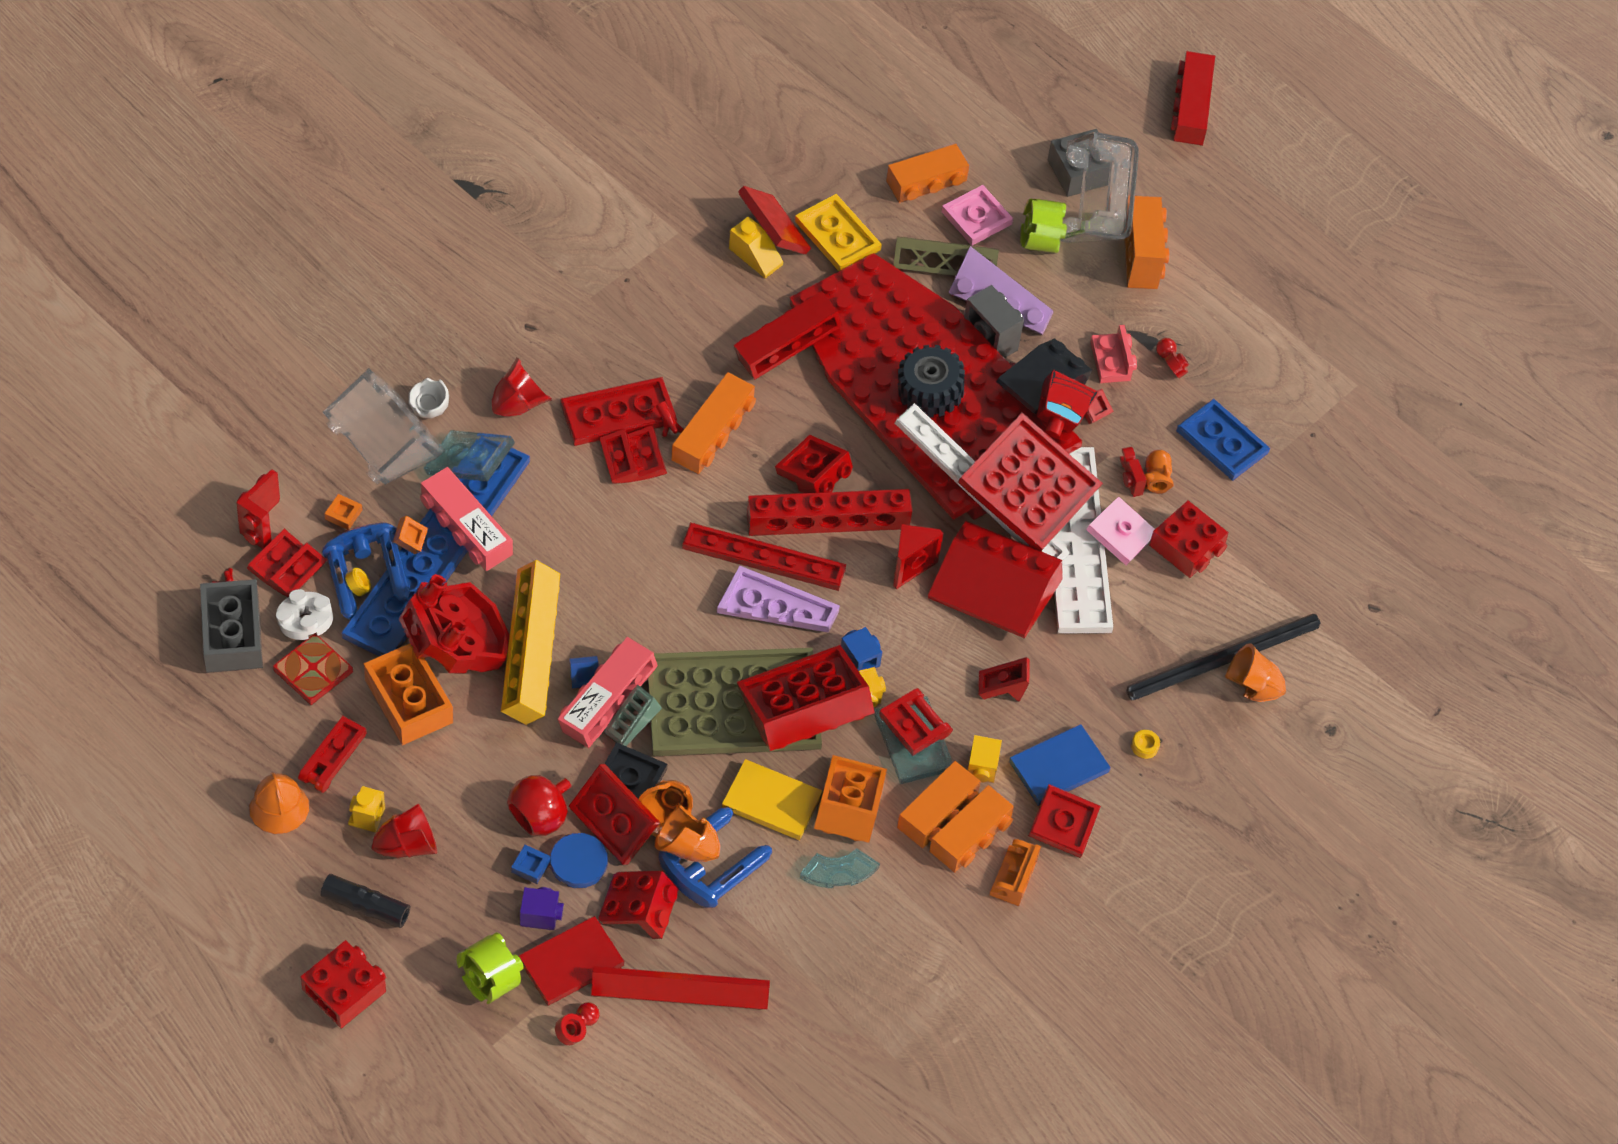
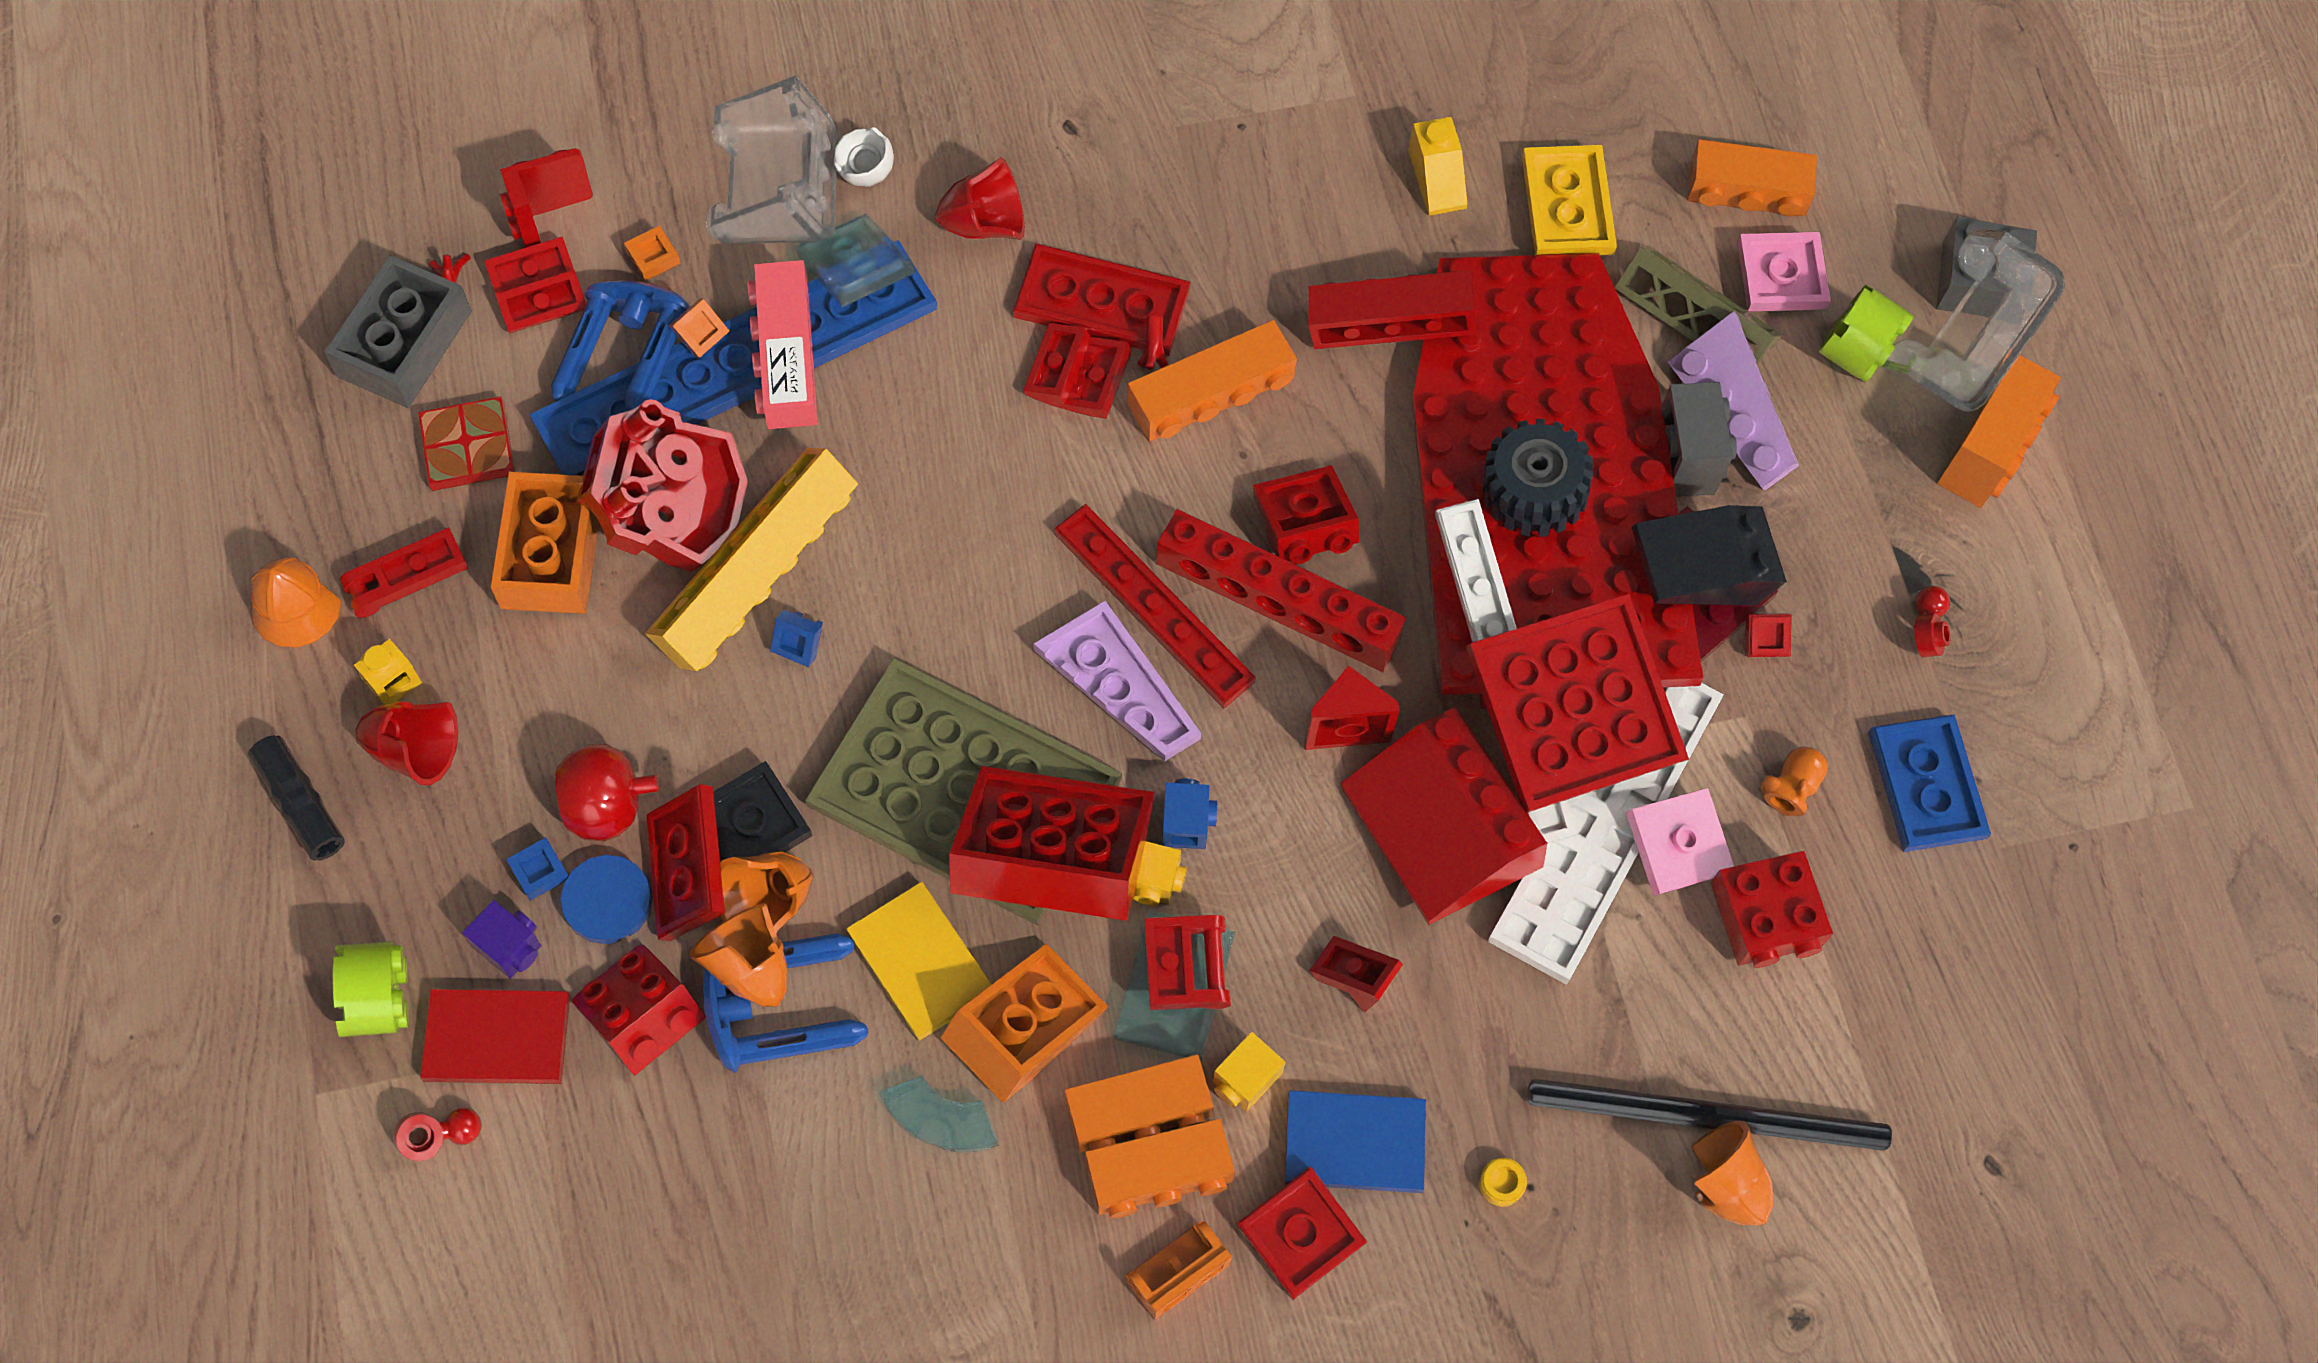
camera: 35 degrees right, 10 degrees up
(300, 603) = (501, 347): white plate -> none
(344, 983) = (181, 898): red brick -> none
(358, 582) = (600, 356): yellow tile -> none
(606, 692) = (799, 684): coral brick -> none
(632, 703) = (838, 738): sand green slope -> none
(680, 987) = (602, 1165): red tile -> none
(774, 220) = (1487, 140): red tile -> none
(1063, 403) = (1702, 612): red torso -> none
(1113, 356) = (1844, 575): coral bracket -> none
(1134, 475) = (1753, 769): red plate -> none
(1194, 98) = (2219, 256): red brick -> none

